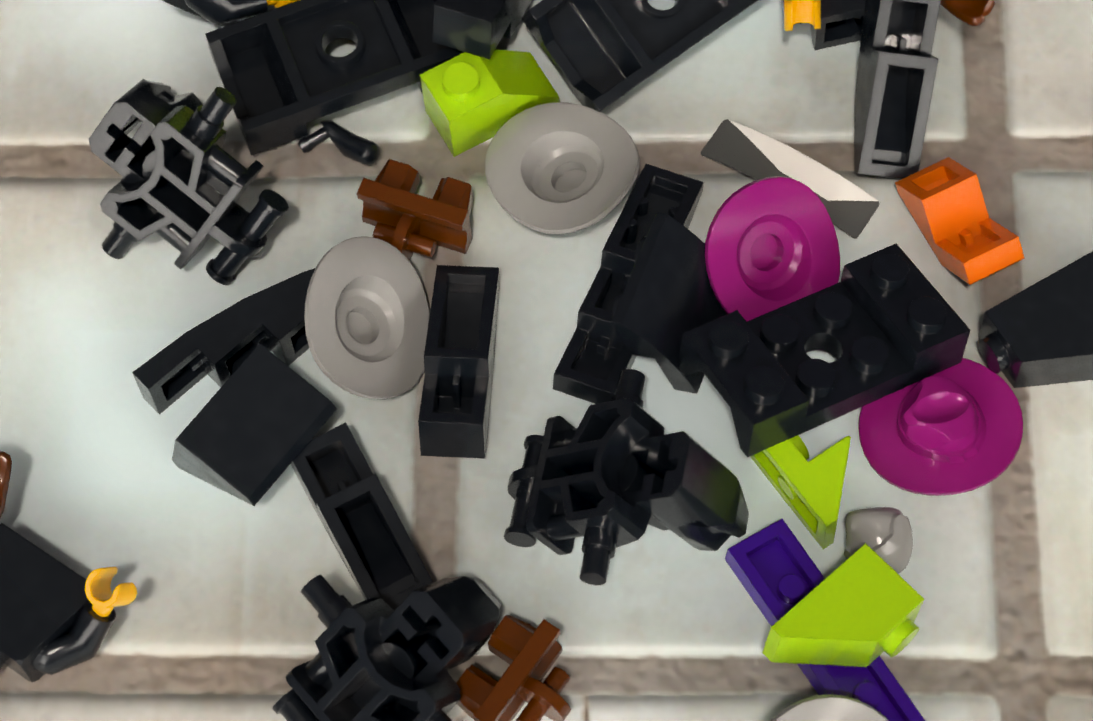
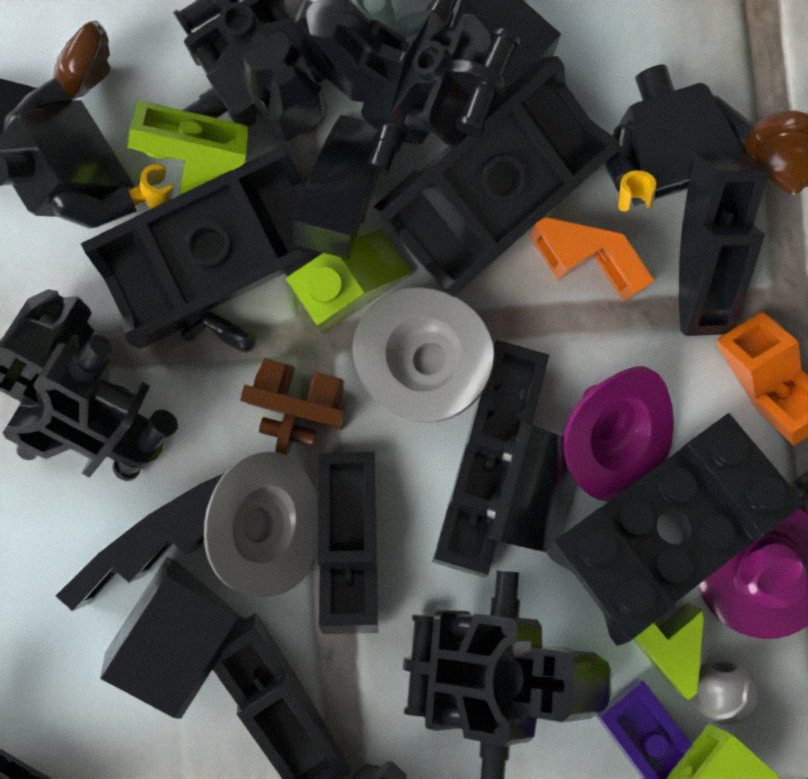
camera: 10 degrees left, 20 degrees up
(744, 76) = (571, 245): none -> orange slope
(766, 157) = (621, 334): sticker -> none

